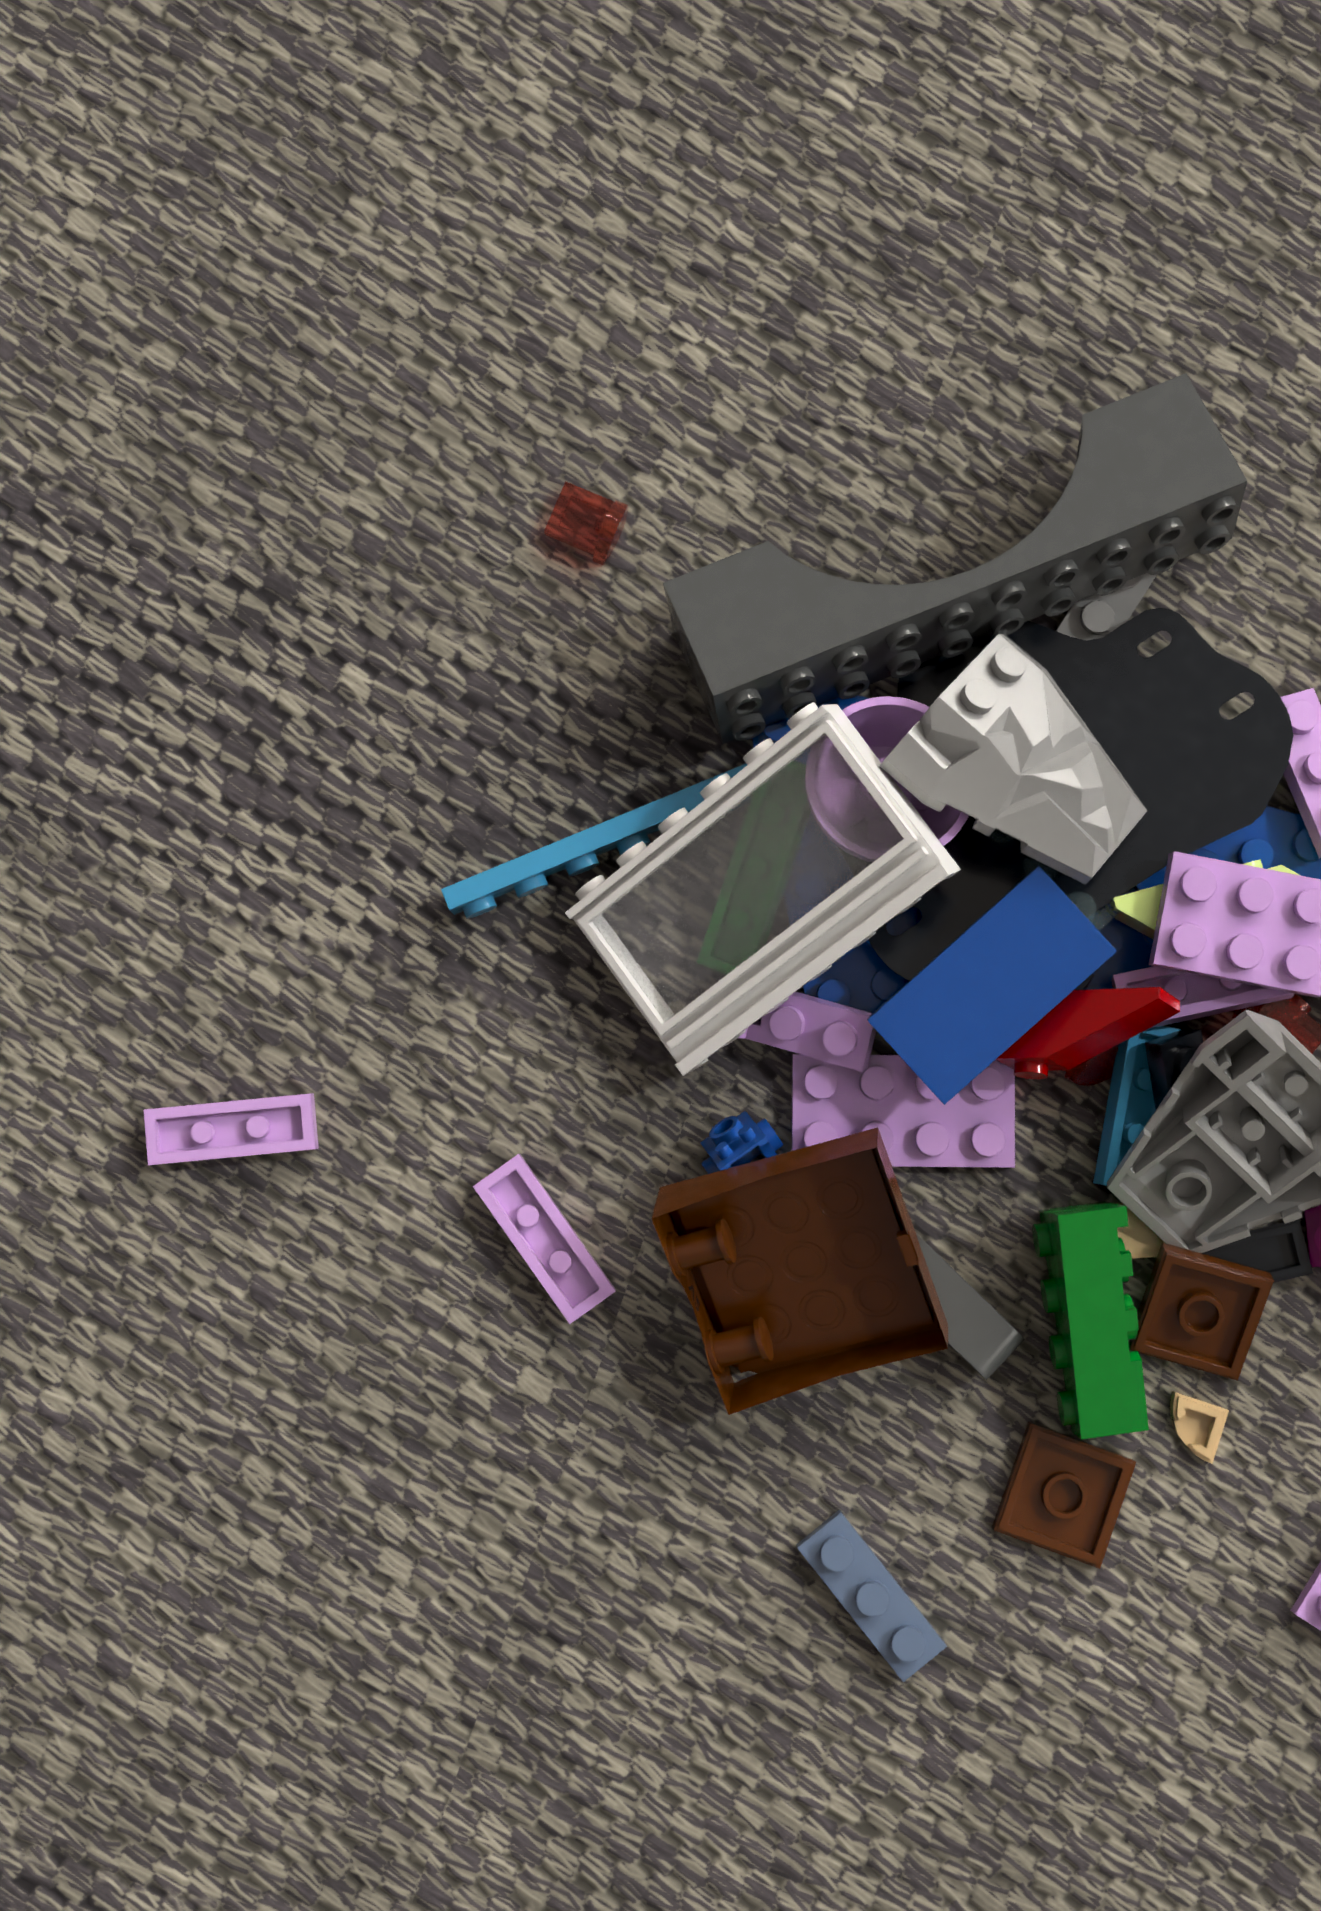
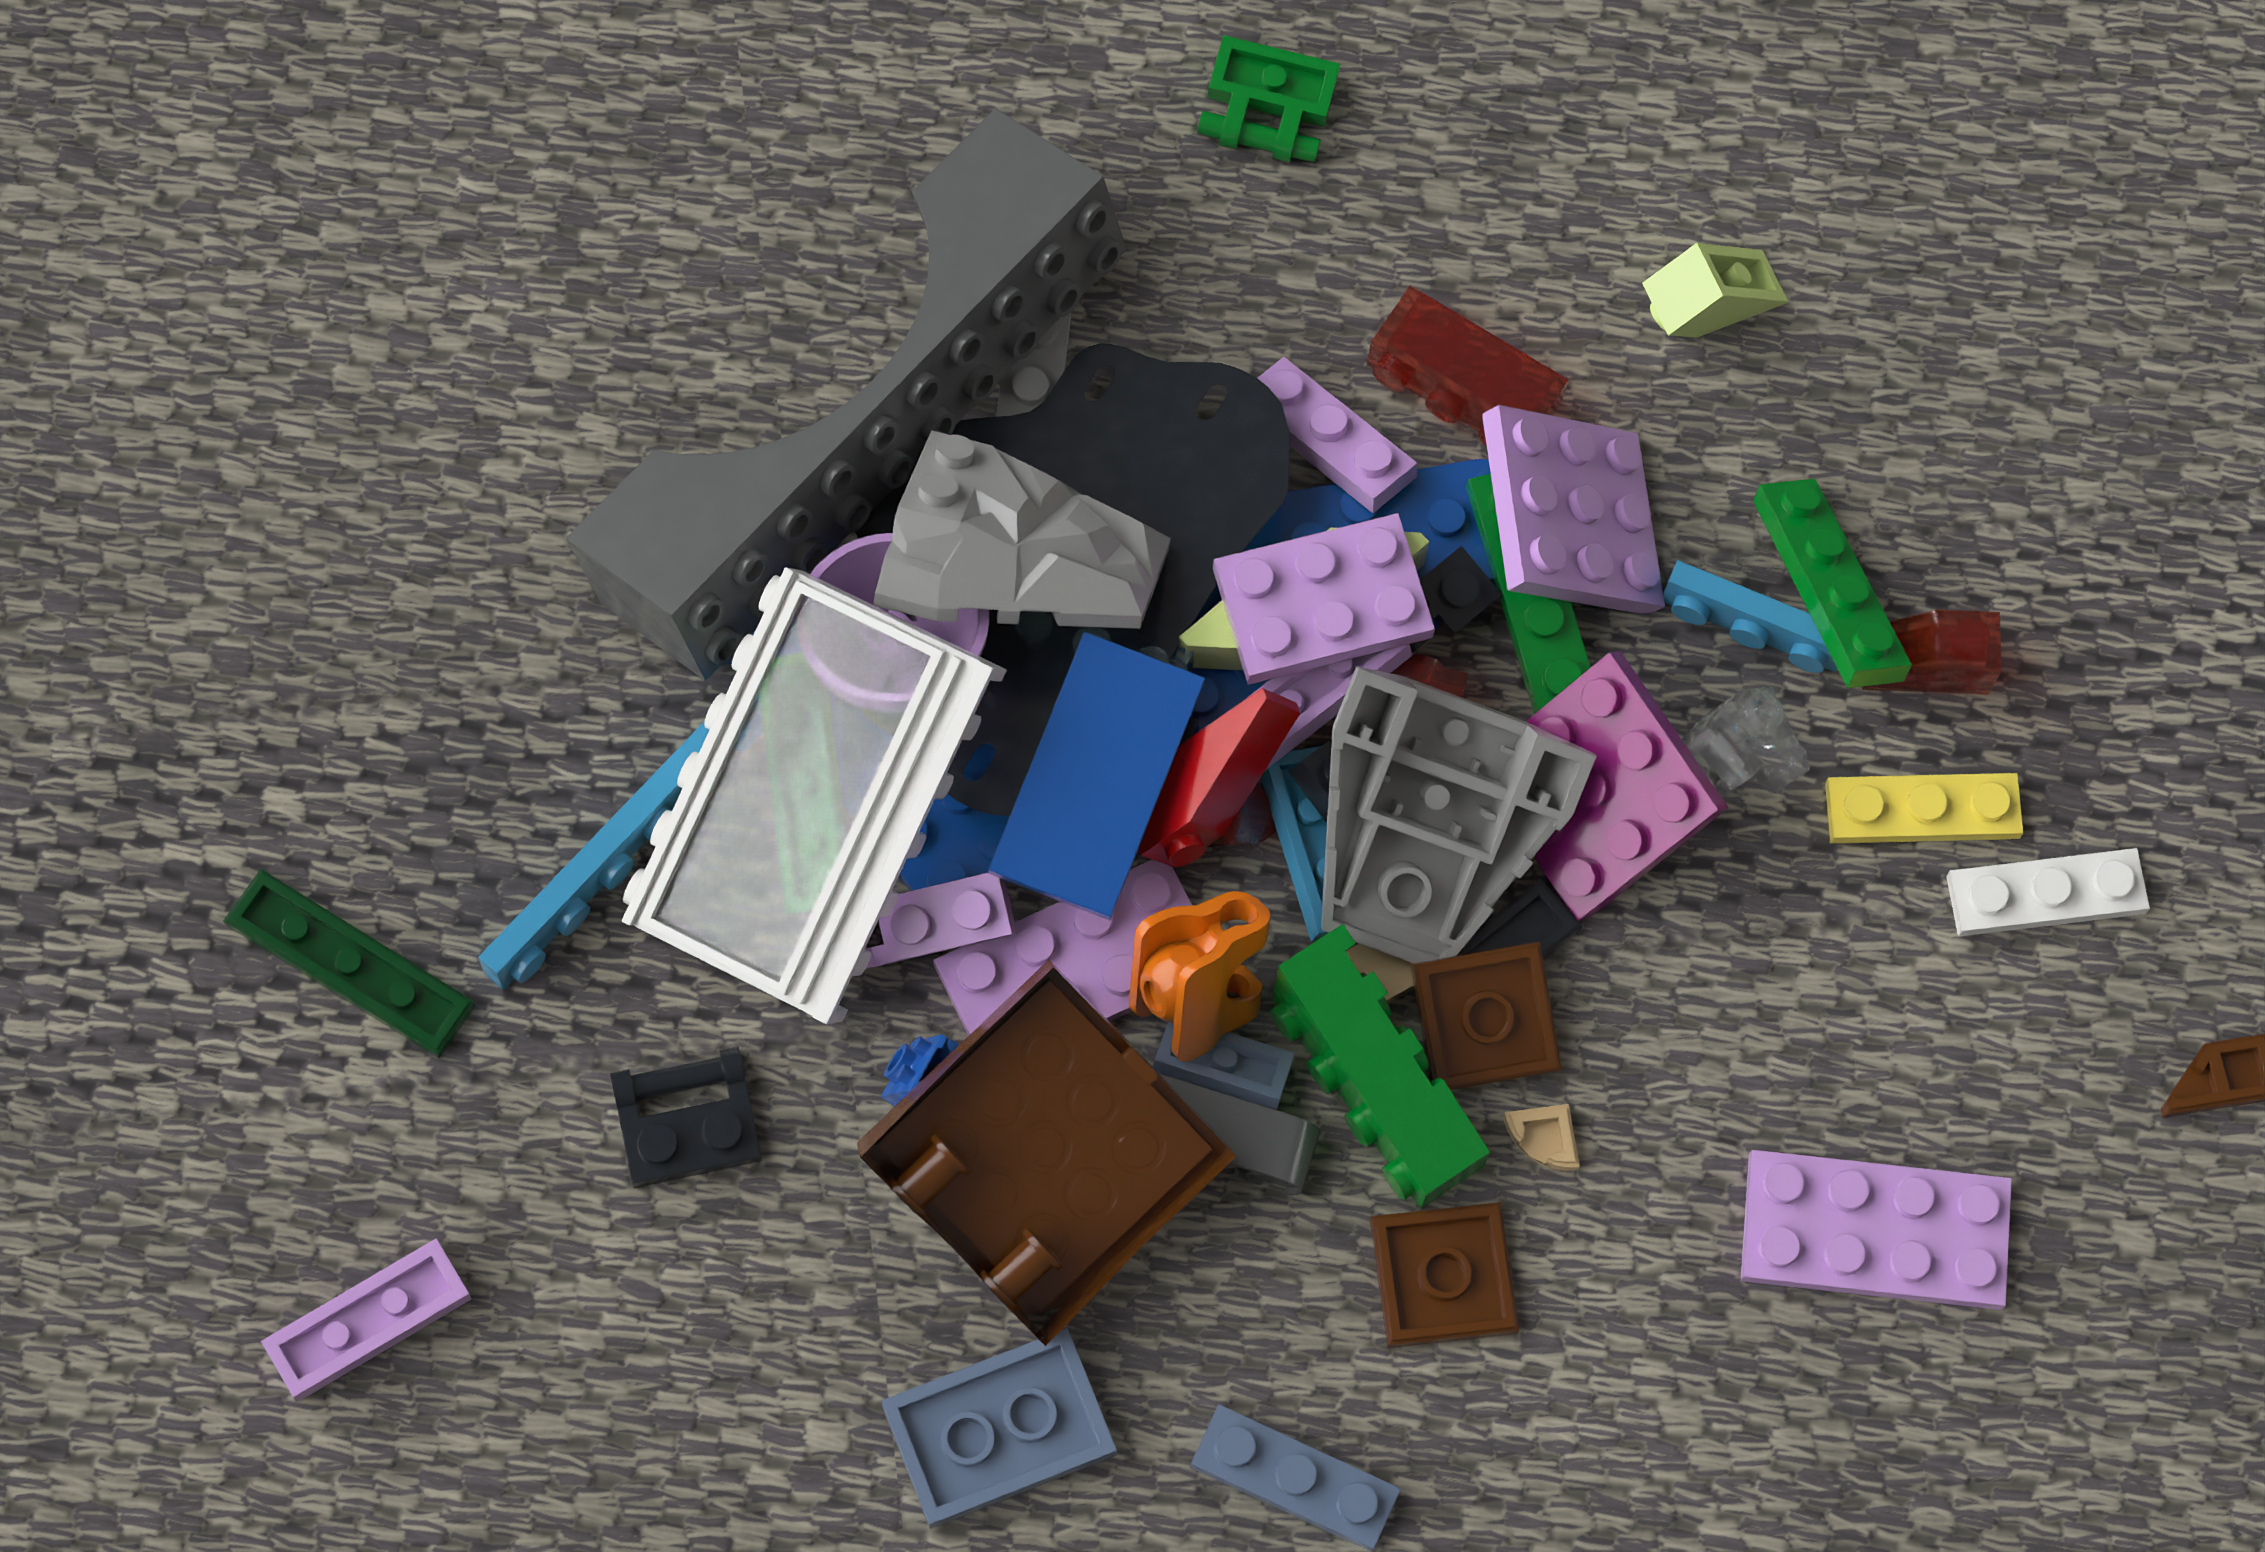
camera: 30 degrees left, 15 degrees down
(346, 837) = (349, 963): none -> dark green tile
(538, 1103) = (688, 1138): none -> black plate
(544, 1238) = (762, 1272): lavender plate -> none
(587, 521) = (455, 531): clear red tile -> none
(664, 1449) = (998, 1428): none -> sand blue plate
(975, 1249) = (1232, 1067): none -> sand blue plate
(988, 1170) = (1189, 963): none -> orange piece

